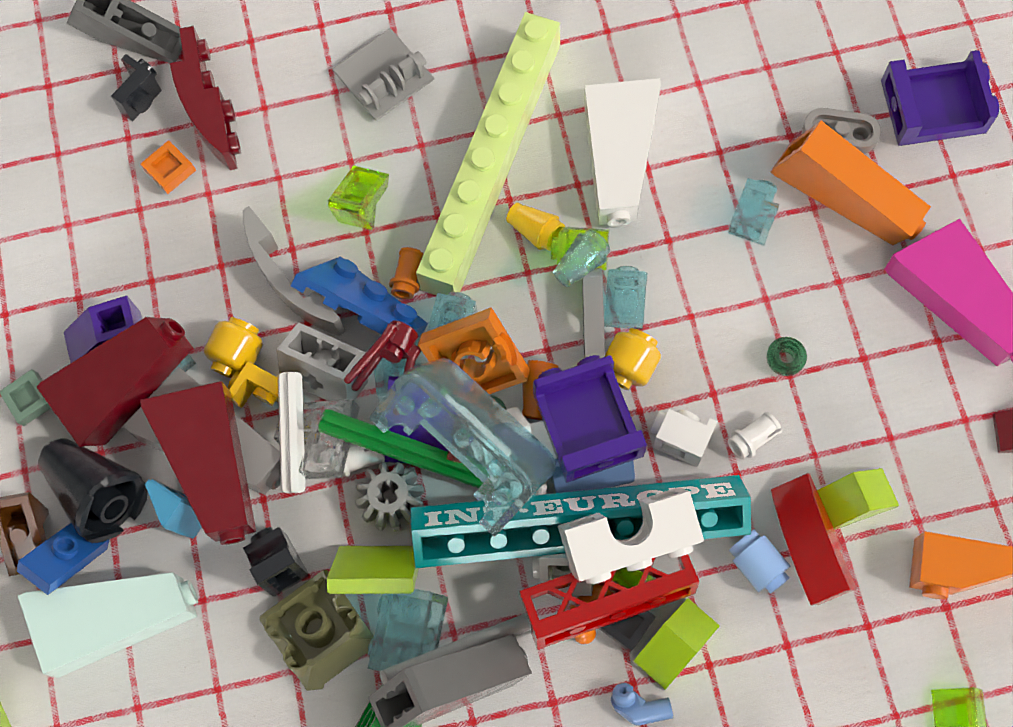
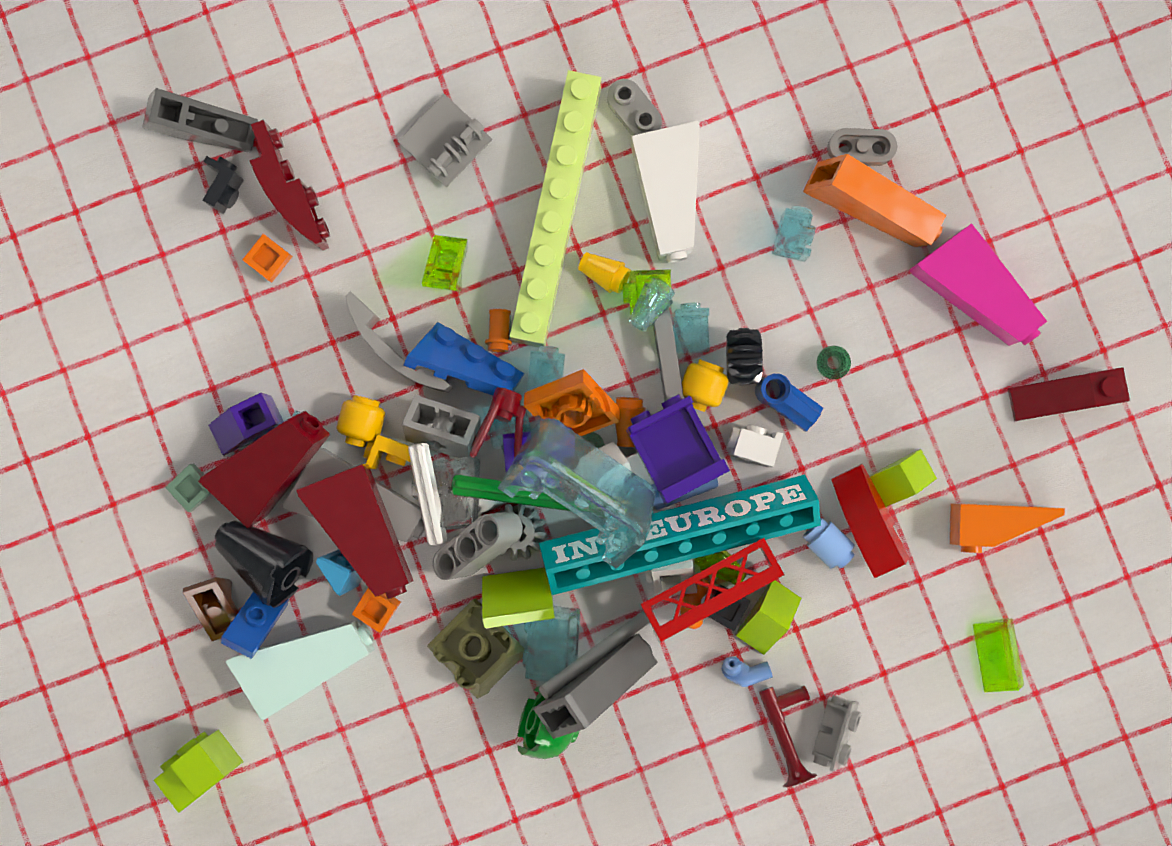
camera: 15 degrees left, 15 degrees up
(207, 561) = (376, 610): none -> orange tile
(274, 561) = (431, 599): black arch -> none
(337, 498) = (477, 545): none -> light grey beam
(590, 65) = (633, 108): none -> light grey plate
(667, 528) = (754, 541): white arch -> none
(681, 331) = (744, 356): none -> black gear
(731, 393) = (790, 403): none -> blue piece
(756, 434) = (809, 441): white pin -> none
(939, 100) = (946, 105): dark purple panel -> none

